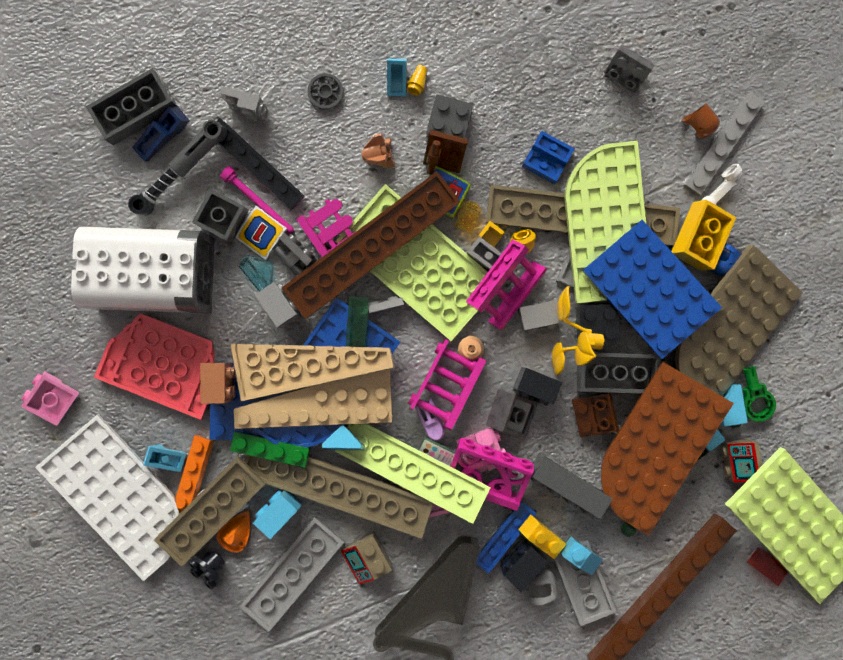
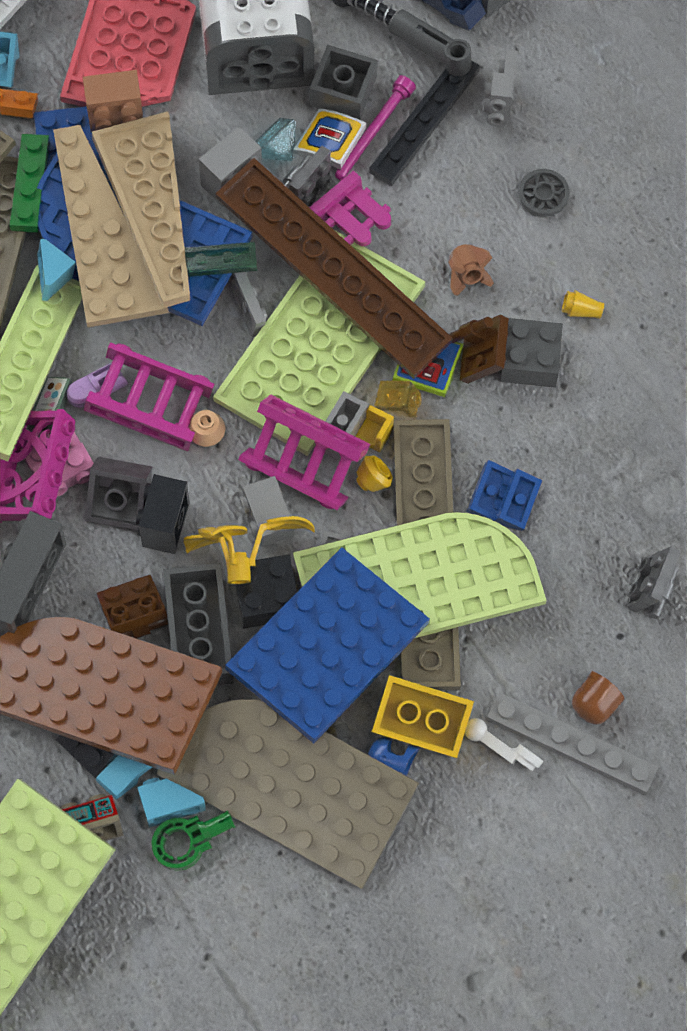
camera: 80 degrees right, 20 degrees down
(396, 77) = (582, 275): medium azure slope -> none

